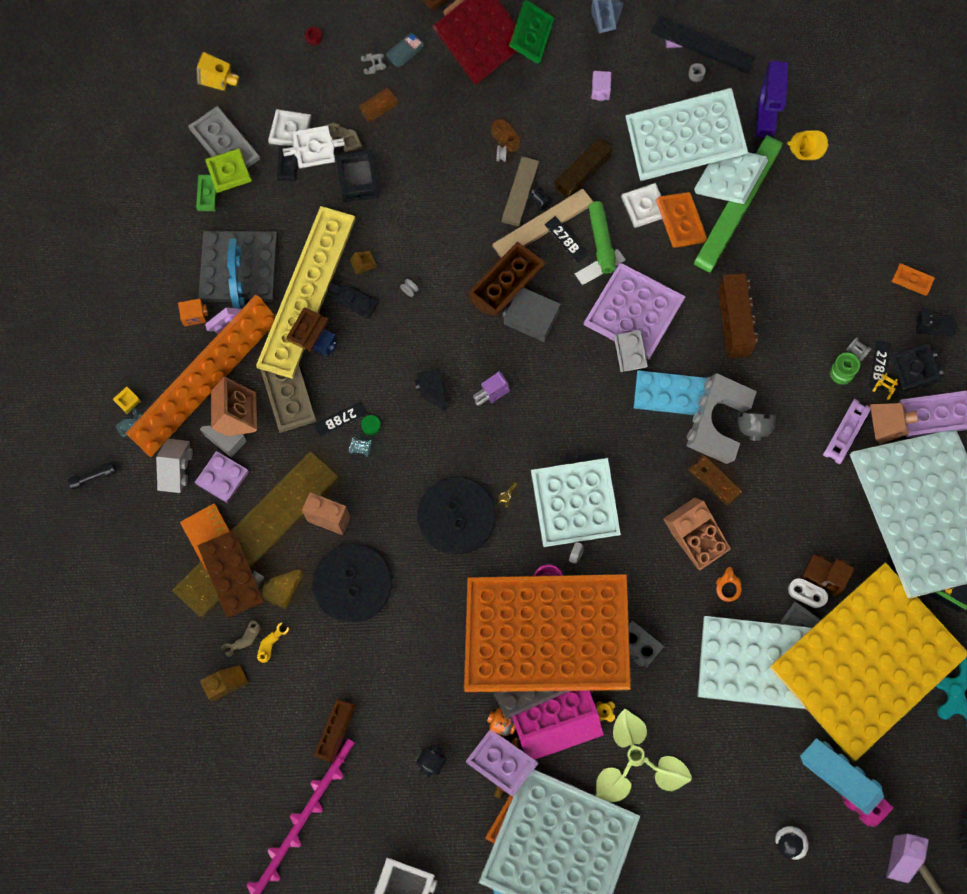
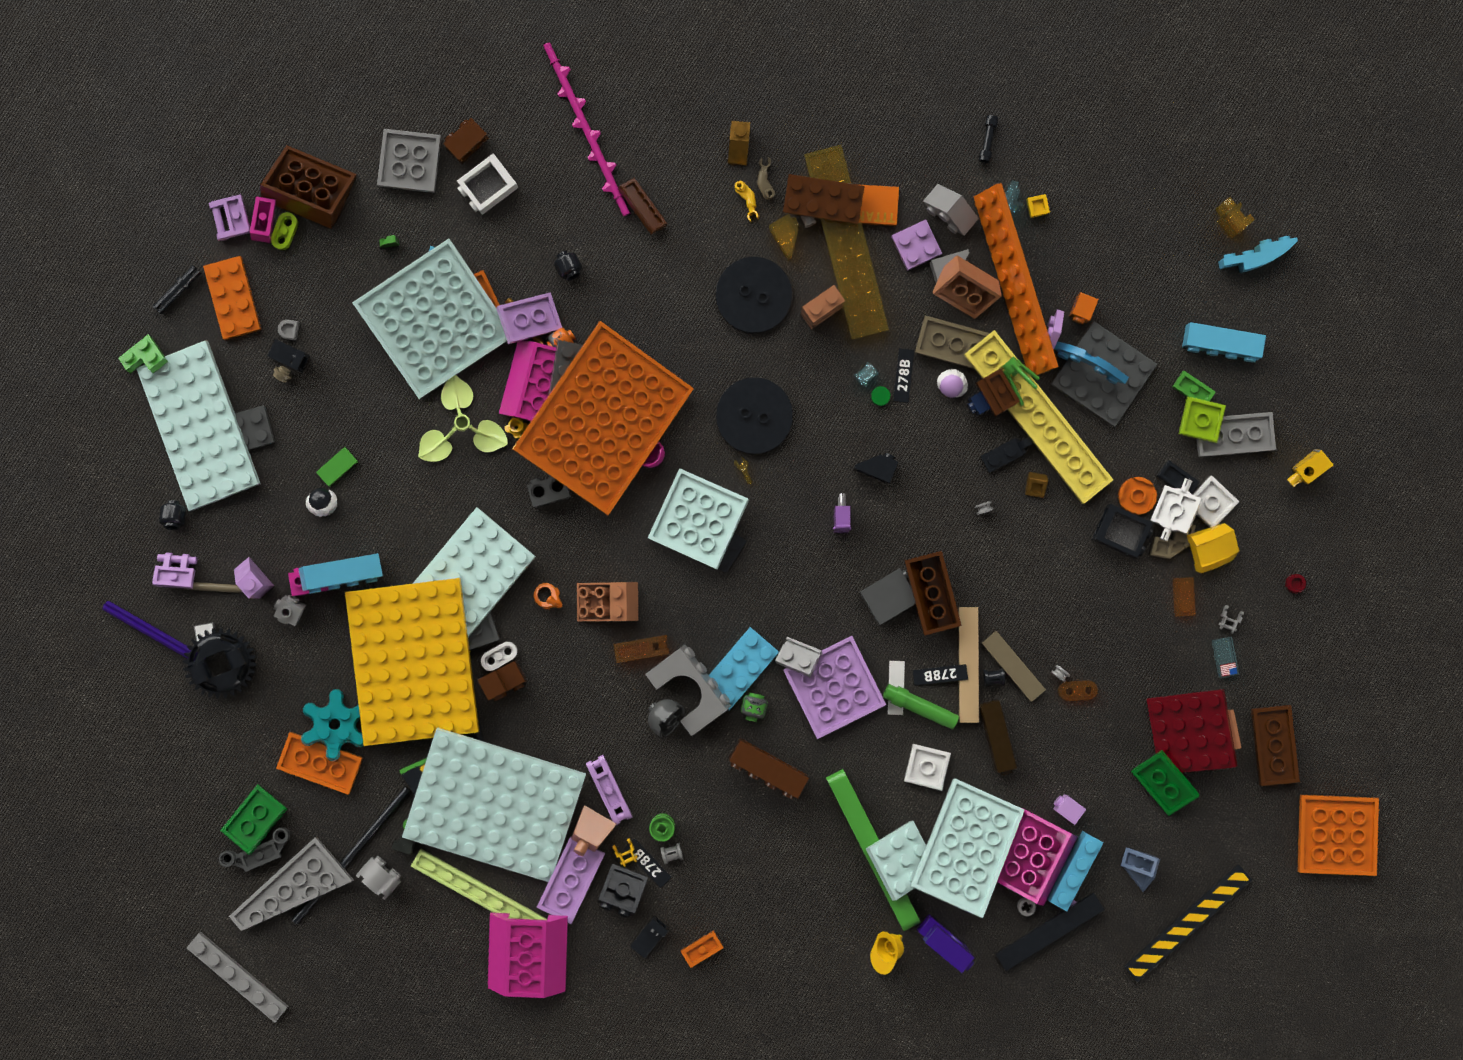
camera: 115 degrees right, 15 degrees up
(45, 243) = (1232, 219): none -> clear yellow hips
(62, 206) = (1264, 254): none -> medium azure slope
(153, 194) = (1223, 341): none -> medium azure brick
(278, 329) = (1014, 367): none -> bright green plant
(321, 184) = (1137, 495): none -> orange tile
(322, 375) = (952, 383): none -> lavender hair
(325, 105) = (1213, 547): none -> yellow slope
(576, 553) = (656, 491): light grey tile -> none
(644, 54) = (1074, 870): none -> medium azure brick
(655, 84) = (1036, 857): none -> dark pink slope
(681, 219) = (891, 788): orange tile -> none
(695, 361) = (754, 706): none -> head
(751, 850) = (337, 466): none -> bright green tile
(906, 803) = (289, 610): none -> light grey brick

